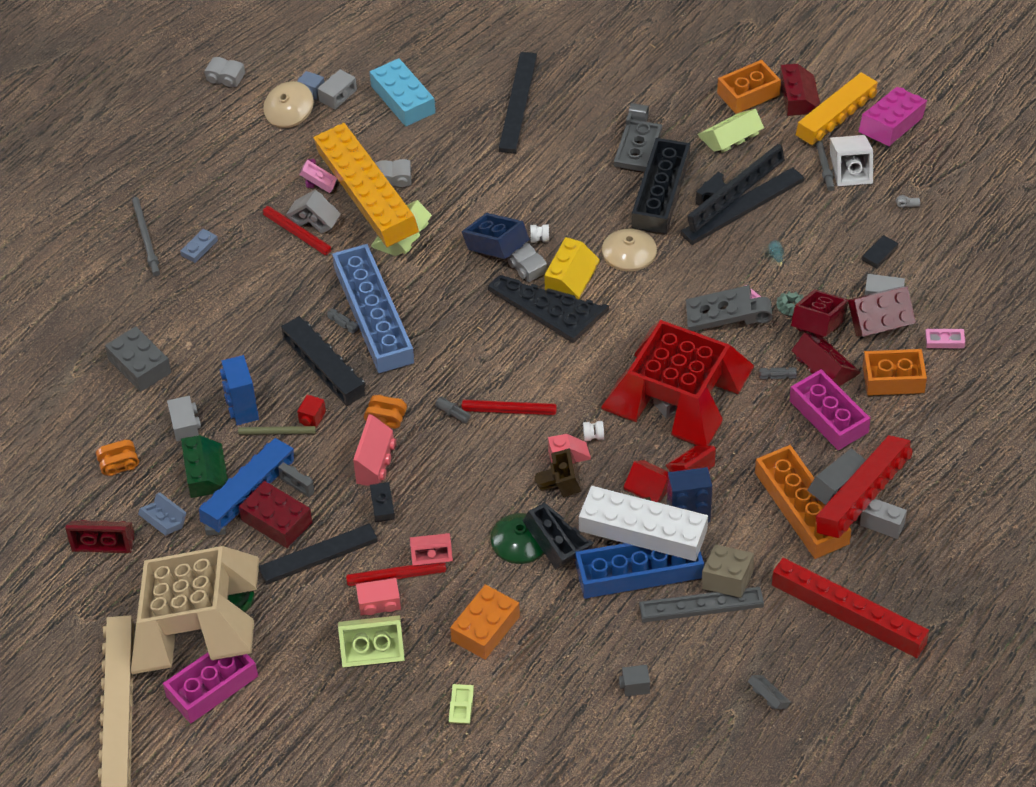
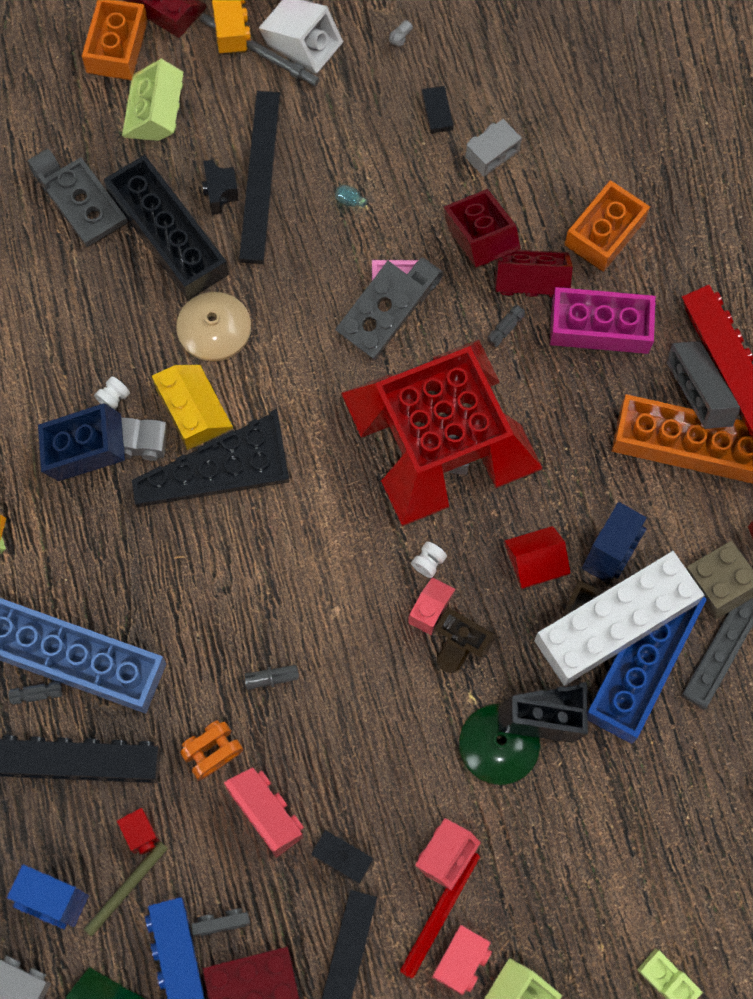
camera: 55 degrees left, 20 degrees up
(485, 621) = (588, 872): orange brick -> none
(509, 407) = (317, 616): red axle -> none
(694, 458) = (550, 498): red slope -> none
(735, 188) = (239, 164): black tile -> none
(782, 302) = (419, 244): sand green gear -> none
(881, 311) = (527, 173): brick -> none
(945, 338) = (598, 148): bright pink piece -> none

